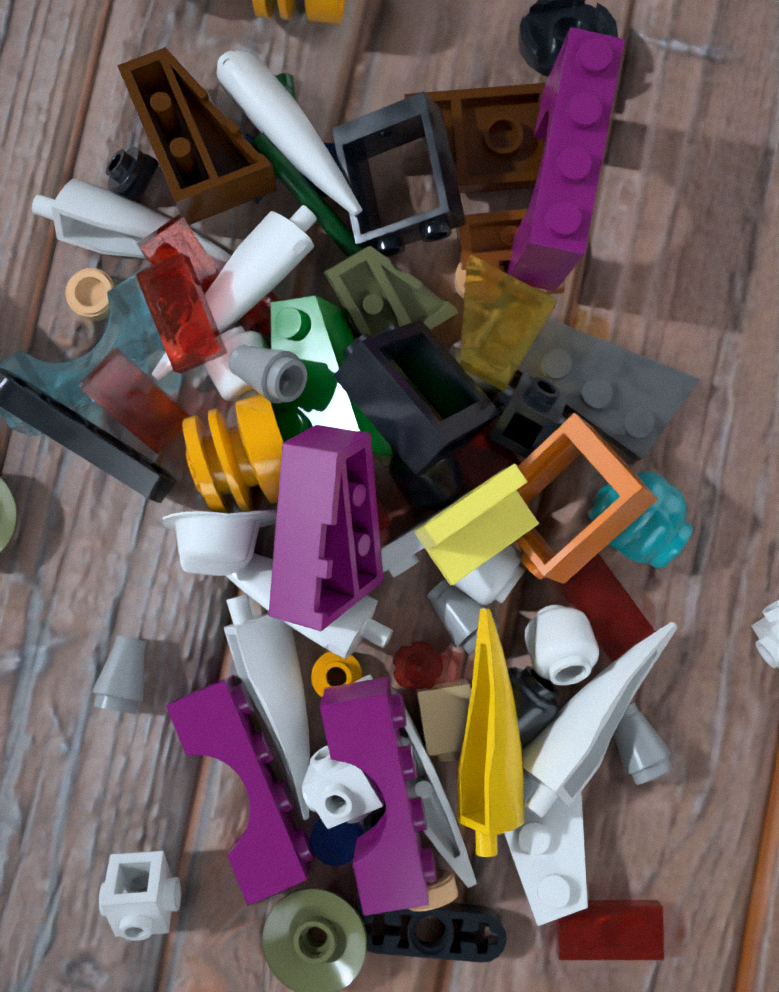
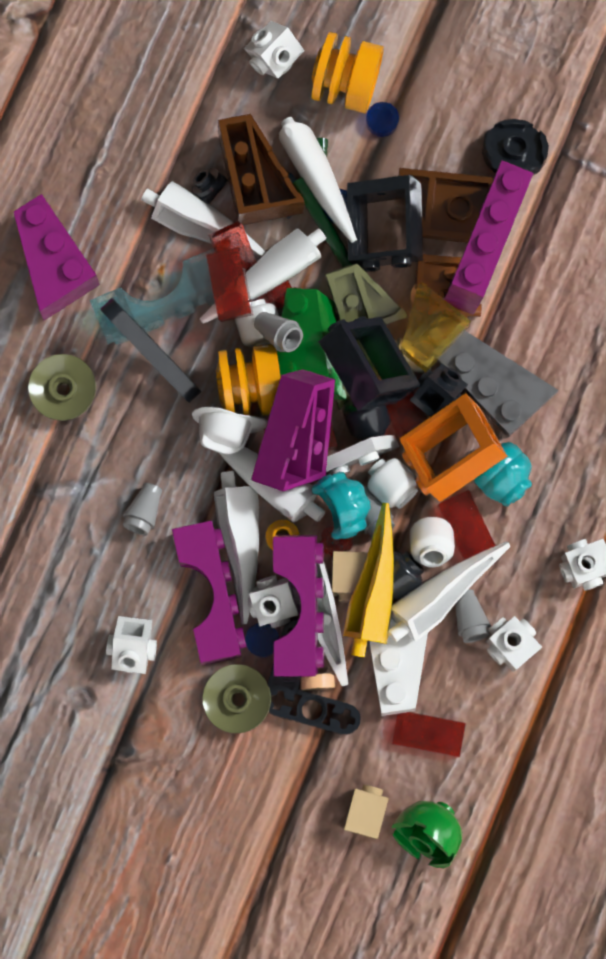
camera: 10 degrees right, 5 degrees down
(88, 293) = (167, 259): light nougat tile -> none
(135, 400) = (187, 334): clear red plate -> none
(365, 32) = (382, 119): none -> clear blue tile
(426, 616) = (347, 503): none -> teal hair
(478, 525) = (390, 448): light yellow panel -> none
(713, 776) = (516, 655): none -> white brick

